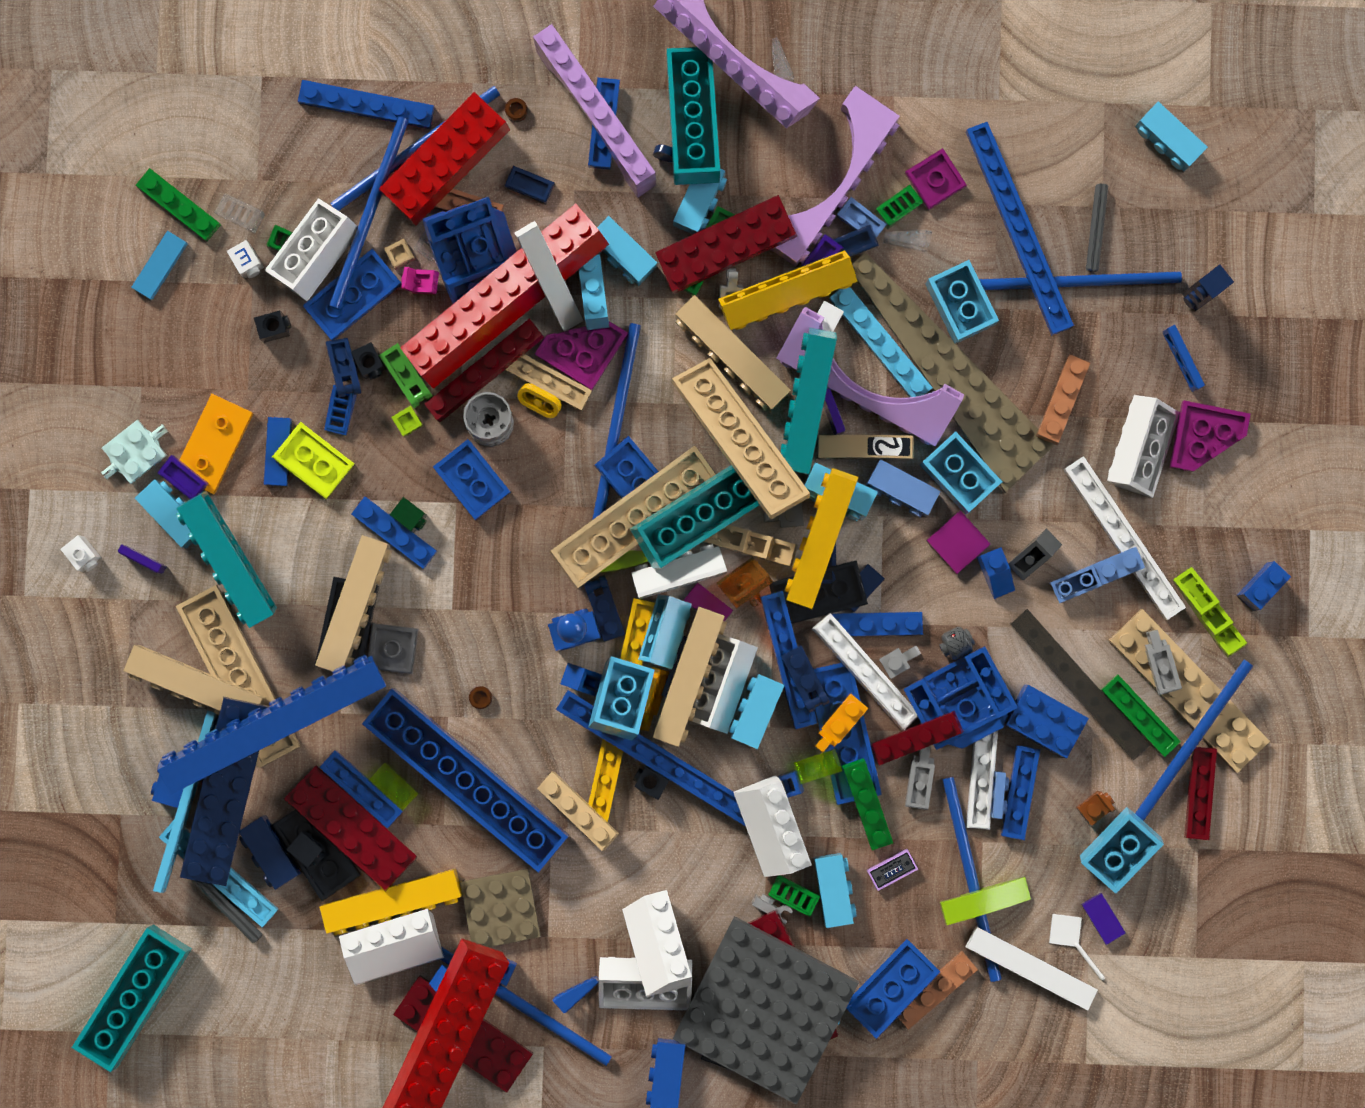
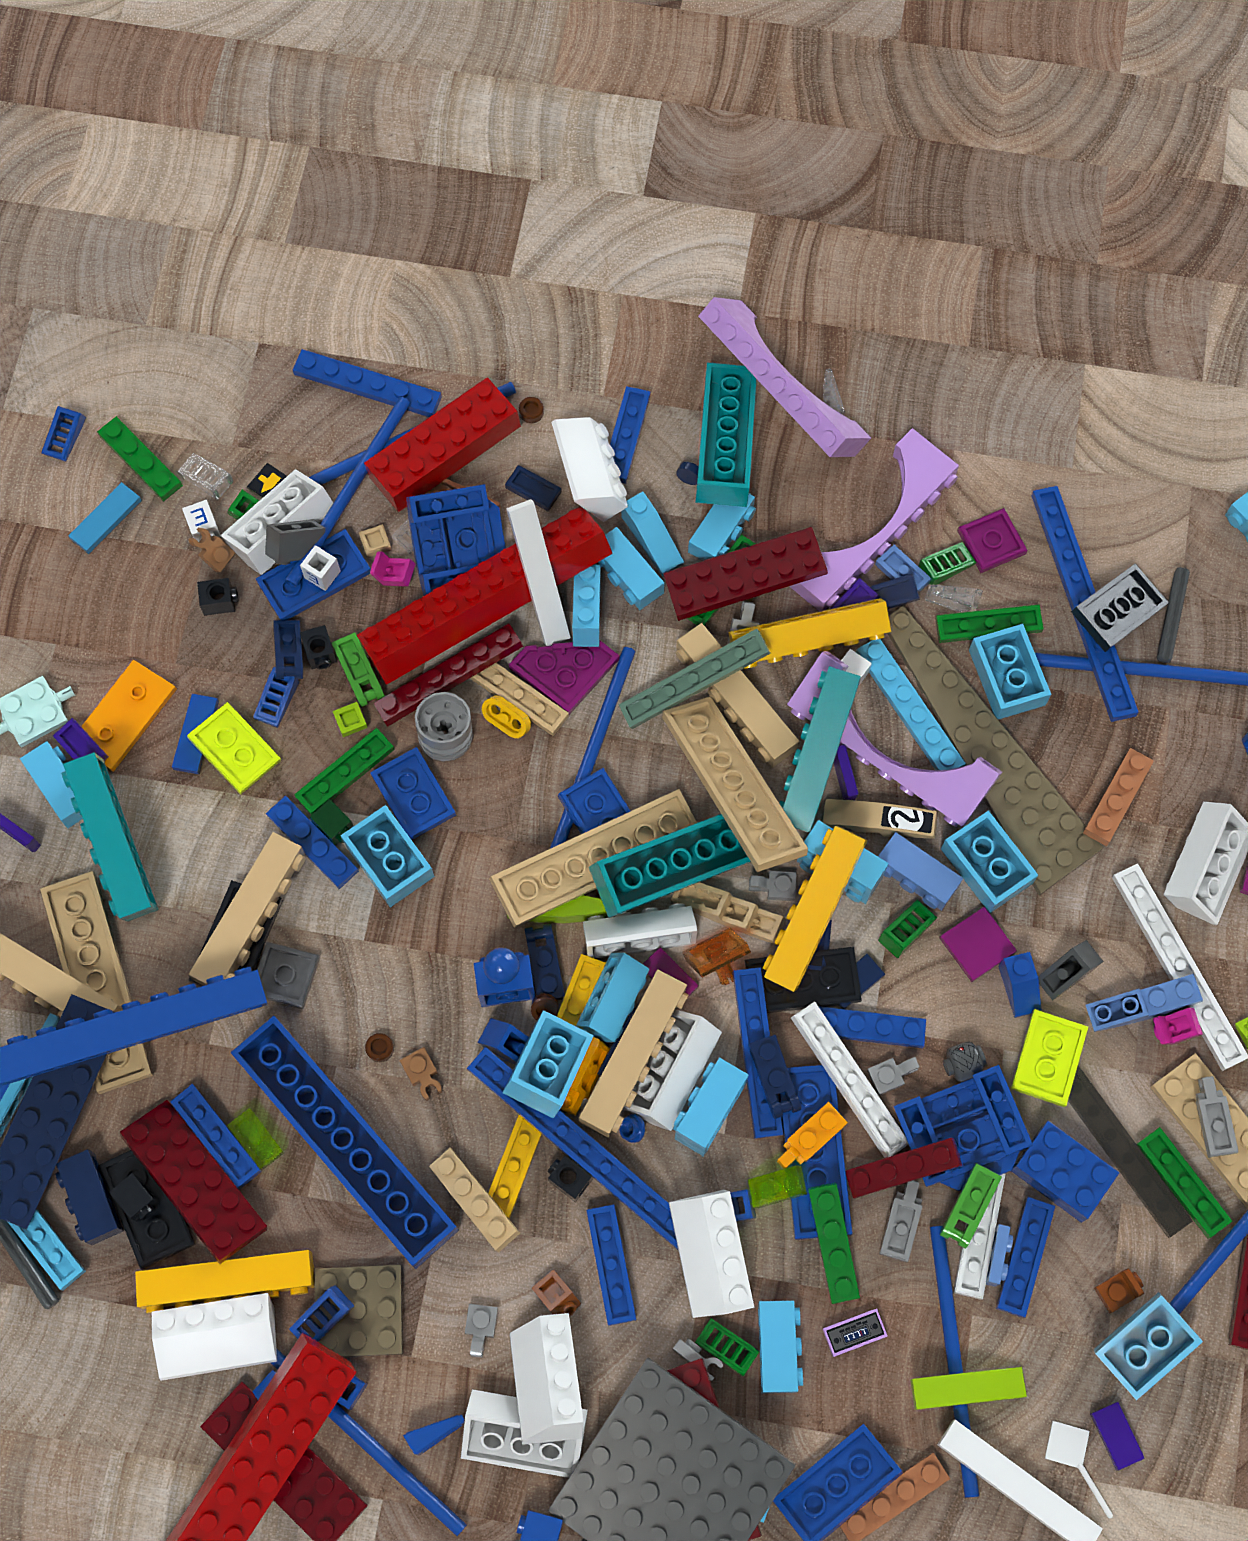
camera: 10 degrees right, 15 degrees down
(98, 181) = (54, 431): none -> blue slope
(260, 284) = (213, 551): none -> medium nougat plate
(295, 209) = (266, 480): none -> black sticker
(329, 269) = (291, 540): none -> dark grey slope
(358, 292) = (320, 568): none -> white brick
(410, 468) = (344, 771): none -> green plate
(460, 538) = (387, 856): none -> medium azure brick
(486, 906) = (338, 1298): none -> blue slope
(516, 710) = (419, 1070): none -> medium nougat plate
(567, 69) = (589, 362): lavender arch -> none
(577, 163) = (590, 466): none -> white slope
(598, 904) = (481, 1324): none -> light grey plate
(610, 646) = (544, 1002): none -> reddish brown tile
(639, 215) = (651, 533): none -> medium azure slope
(654, 875) = (556, 1294): none -> dark orange bracket
(694, 845) = (611, 1265): none -> blue plate
(695, 348) = (694, 678): none -> sand green plate
(696, 735) = (632, 1128): none -> blue plate
(888, 552) = (896, 941): none -> green slope
(939, 258) = (979, 623): none -> green plate
(973, 759) = (971, 1204): none -> bright green plate
(1025, 630) = (1049, 1058): none -> neon yellow tile
(1050, 231) = (1119, 607): none -> plate
(1126, 590) = (1177, 1027): none -> dark pink bracket

